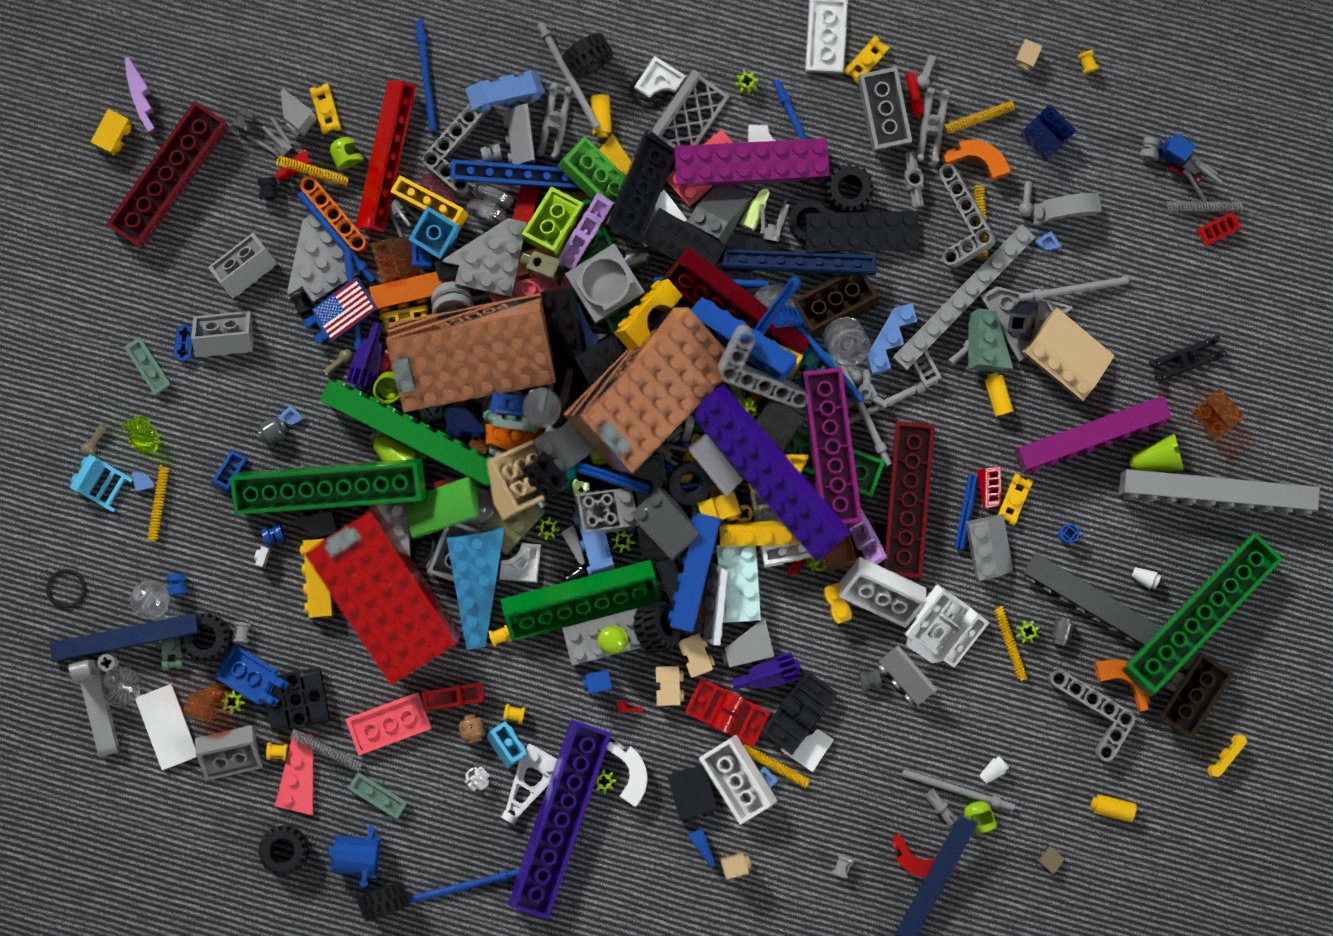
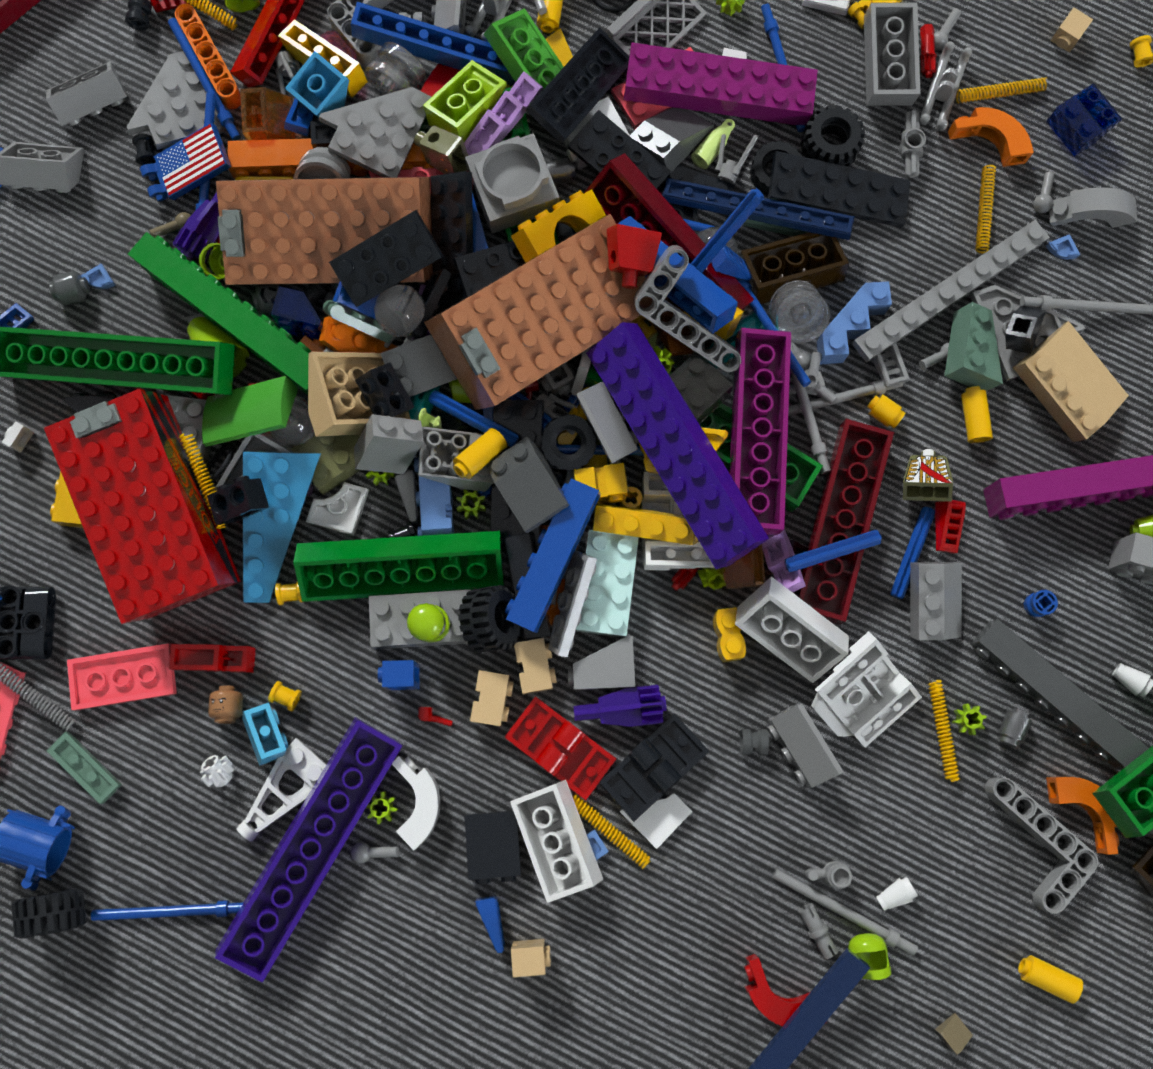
camera: 10 degrees right, 5 degrees down
(273, 535) = (37, 413): blue wheel -> none
(425, 567) = (197, 472): none -> yellow piece
(453, 579) = (238, 500): none -> black brick
(527, 376) = (386, 258): none -> black plate
(554, 512) = (388, 444): none -> light grey brick
(596, 816) = (362, 852): none -> light grey bar
(625, 507) = (479, 453): none -> yellow brick
(710, 336) = (632, 252): none -> red torso
(842, 866) = (673, 986): light grey bush -> none
(902, 527) = (833, 550): none -> blue axle
(927, 405) = (885, 411): none -> yellow brick
(946, 765) = (834, 874): none -> light grey piece
(966, 454) = (928, 478): none -> torso
(968, 216) = (974, 194): light grey beam -> none
(1015, 499) = (977, 547): yellow plate -> none

